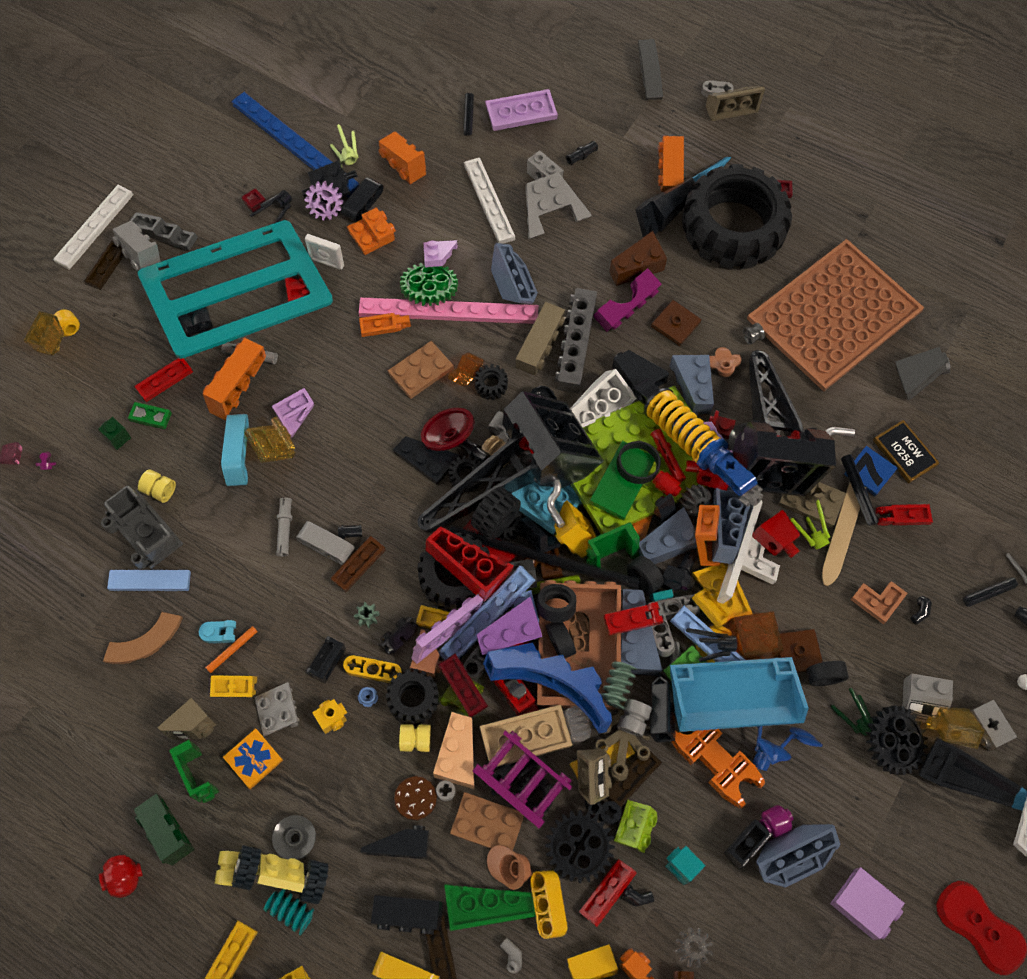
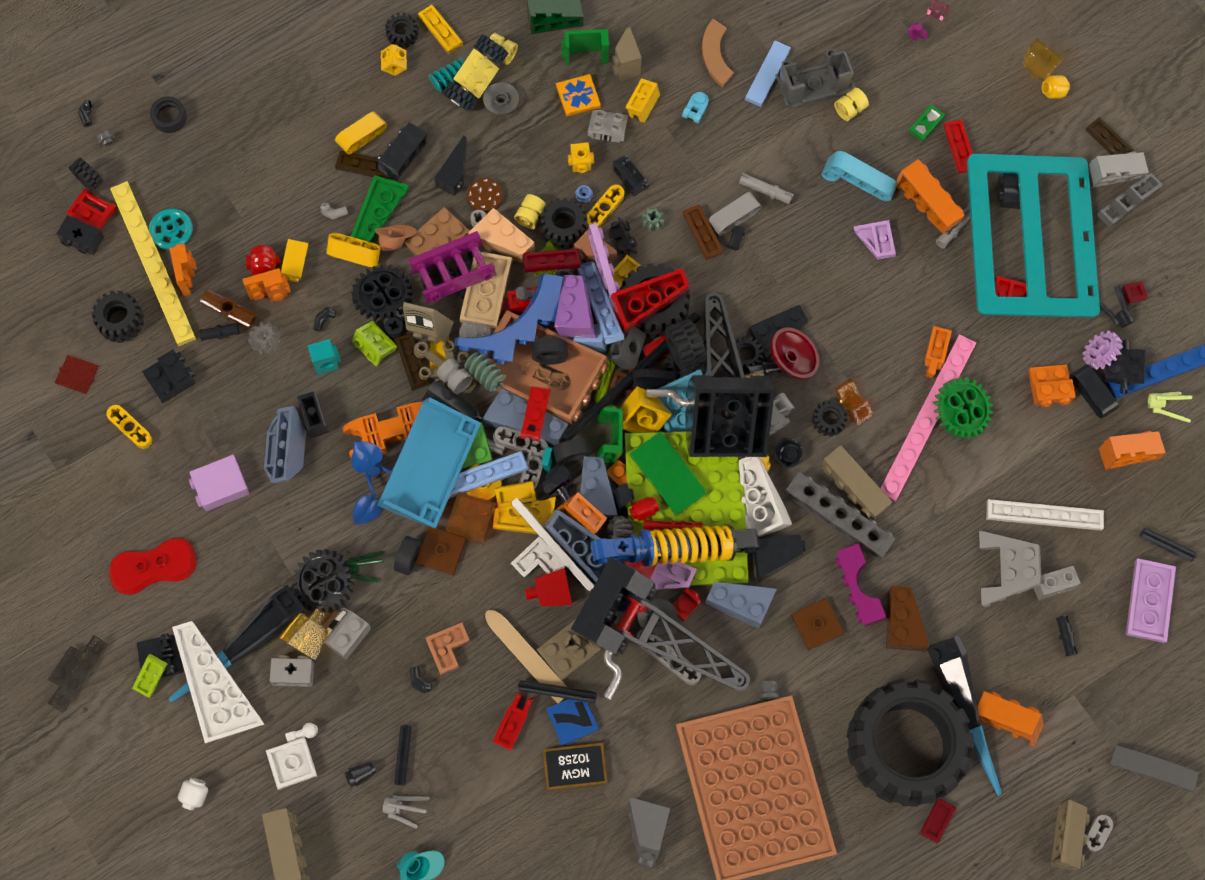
camera: 115 degrees right, 5 degrees up
(93, 227) = (1162, 145): white tile -> none
(114, 433) = (920, 89): dark green brick -> none
(231, 649) = (676, 112): orange bar -> none
(271, 441) = (851, 204): clear yellow plate -> none
(324, 252) = (1039, 326): white plate -> none
(420, 369) = (873, 364): medium nougat plate -> none
(438, 252) = (997, 432): lavender wing -> none
(512, 275) = (935, 490): sand blue wedge -> none
(557, 591) = (589, 346): black tyre -> none
(607, 892) = (338, 297): red tile -> none
(640, 445) = (681, 472): black tyre -> none
(724, 362) = (756, 645): nougat plate -> none
(725, 642) = (474, 479): black plant -> none
(752, 497) = (593, 571): light grey gear -> none
(777, 820) = (317, 448): magenta head -> none
(818, 538) = (530, 625): lime plant -> none

